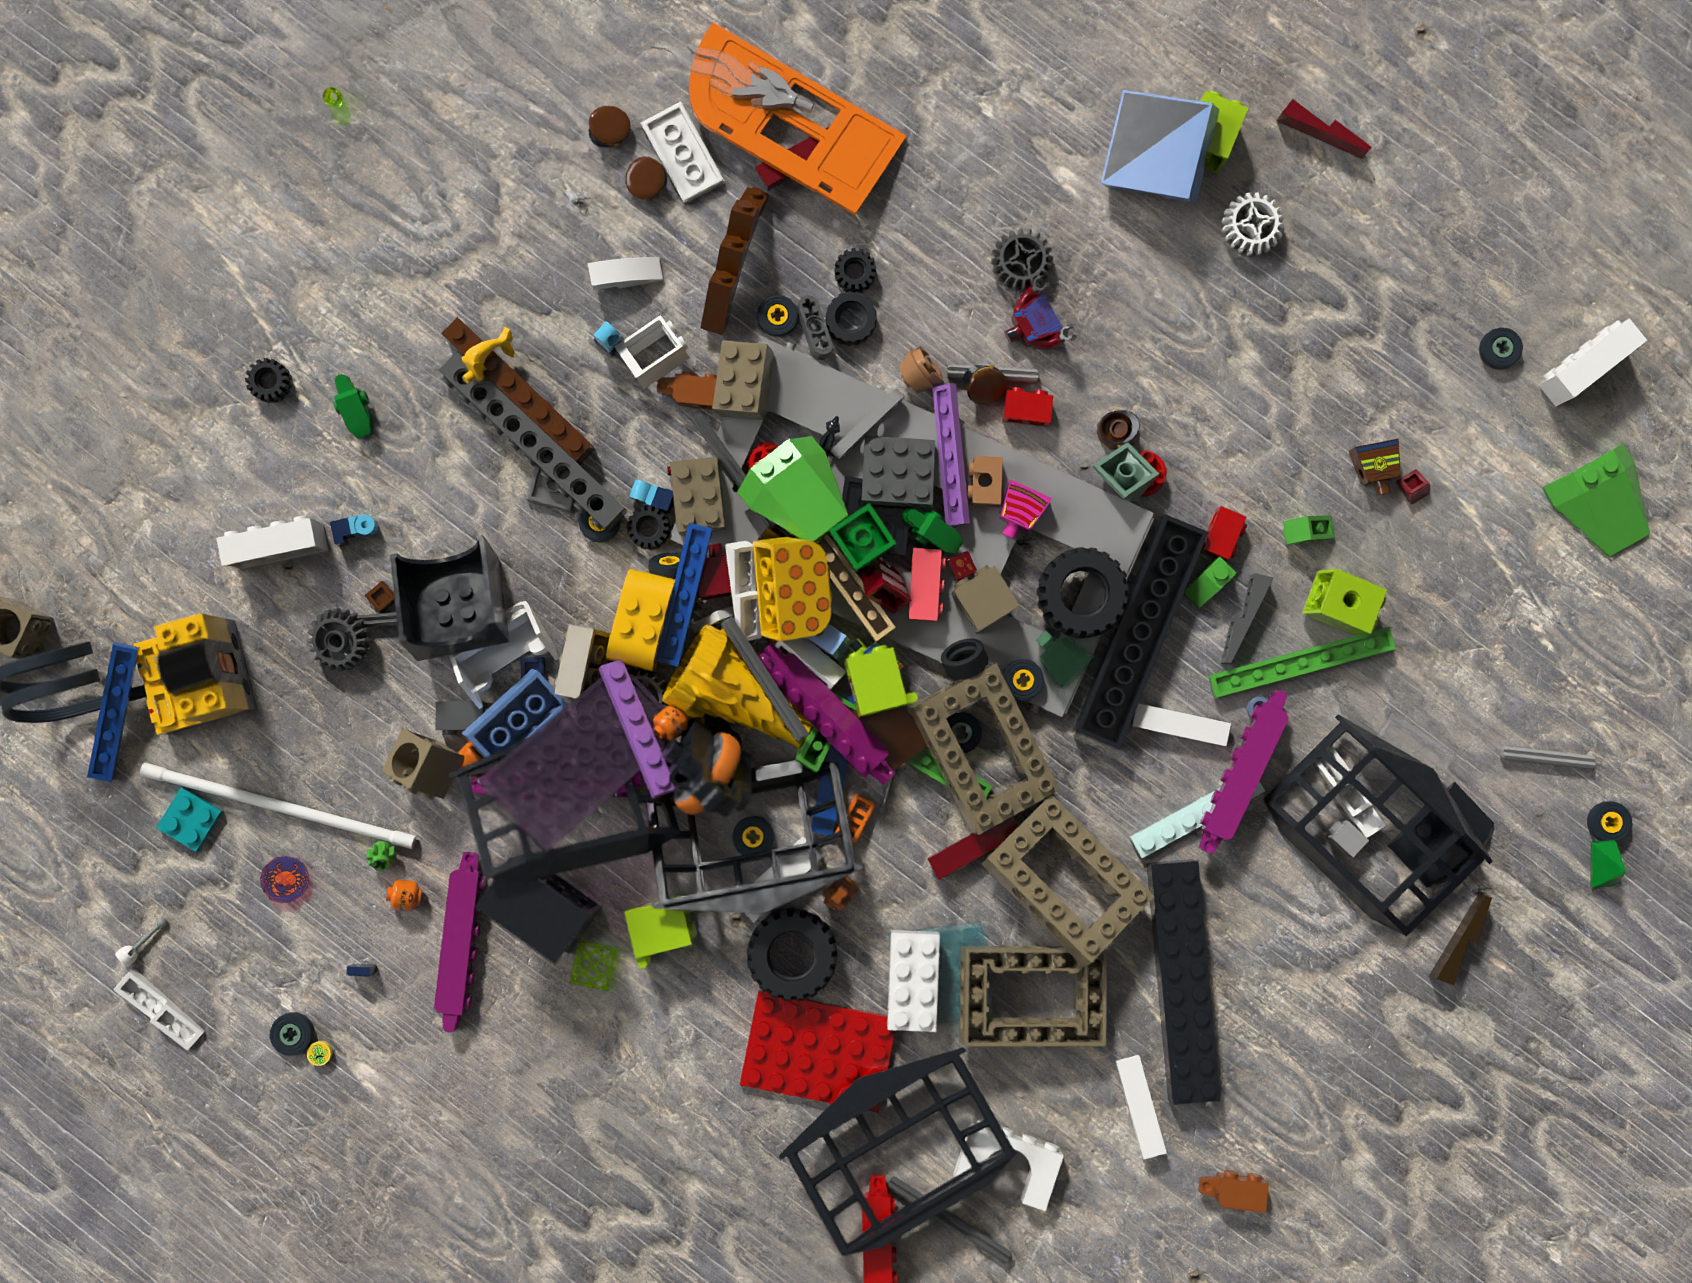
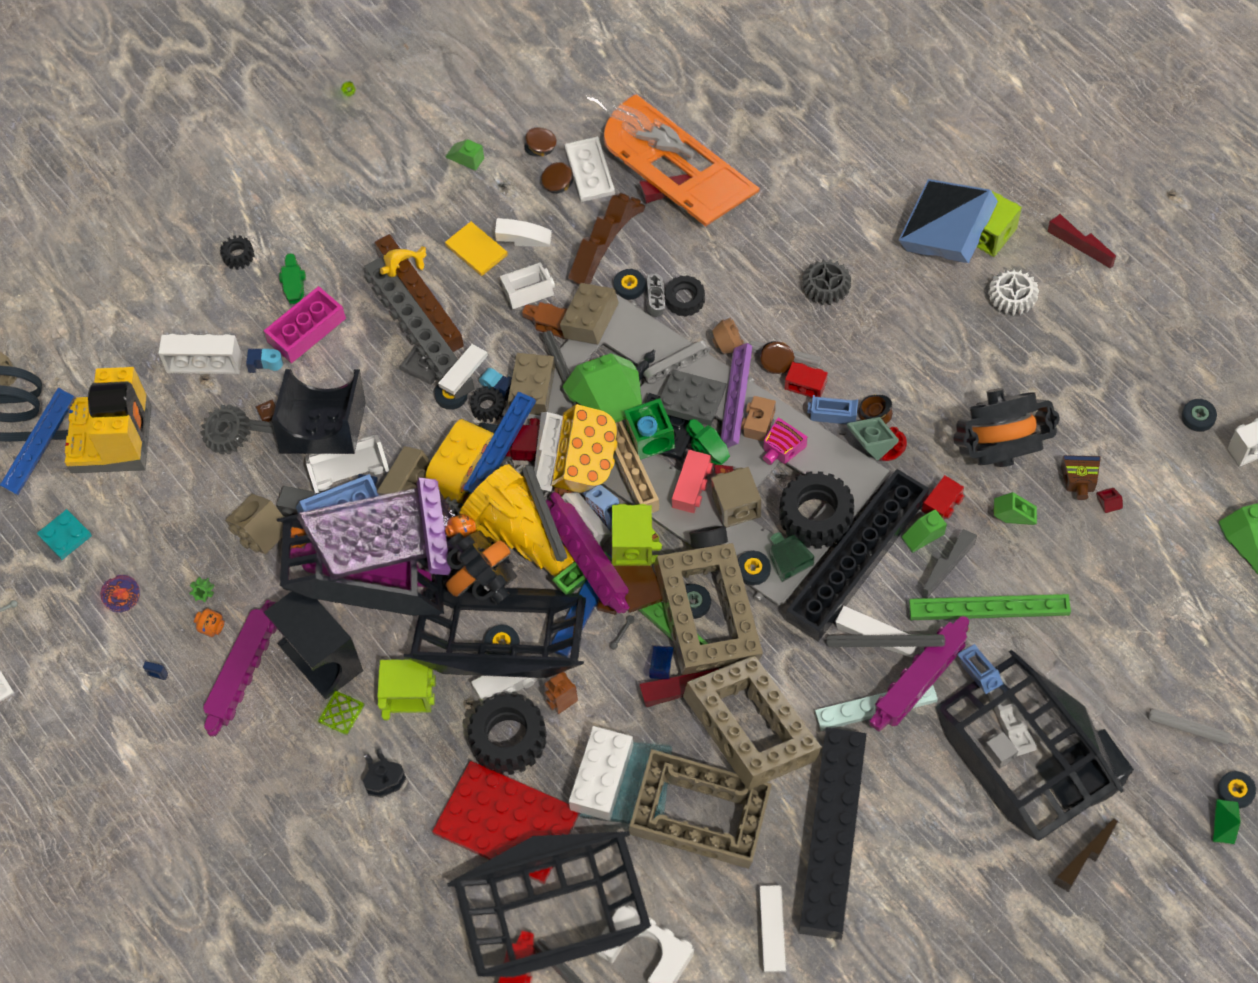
camera: 20 degrees right, 25 degrees down
(162, 774) = (55, 497): white piece -> none
(300, 1042) = (87, 715): black bush -> none
(319, 1053) = (98, 728): tile -> none
(389, 470) = (304, 324): none -> dark pink brick
(517, 166) = (467, 154): none -> bright green slope
(571, 305) = (476, 248): none -> yellow tile
(607, 338) = (496, 268): medium azure leg -> none
(609, 498) = (463, 369): none -> white tile
(663, 1033) = (383, 775): none -> black hinge
(855, 257) = (697, 256): black tyre -> none
(861, 823) = (591, 652): orange slope -> none
(864, 547) = (647, 426): none -> dark azure tile
(884, 586) = (655, 468): dark red torso -> none
(944, 822) = (661, 662): none -> clear blue tile
(1036, 321) = (827, 322): dark red torso -> none
(1044, 443) = (833, 410): none -> medium blue window
(1196, 740) = (886, 640): none -> dark grey axle
(1284, 433) = (1005, 427): none -> black piece
(1322, 769) = (986, 681): none -> medium blue window
(1345, 601) = (1033, 563): lime brick -> none

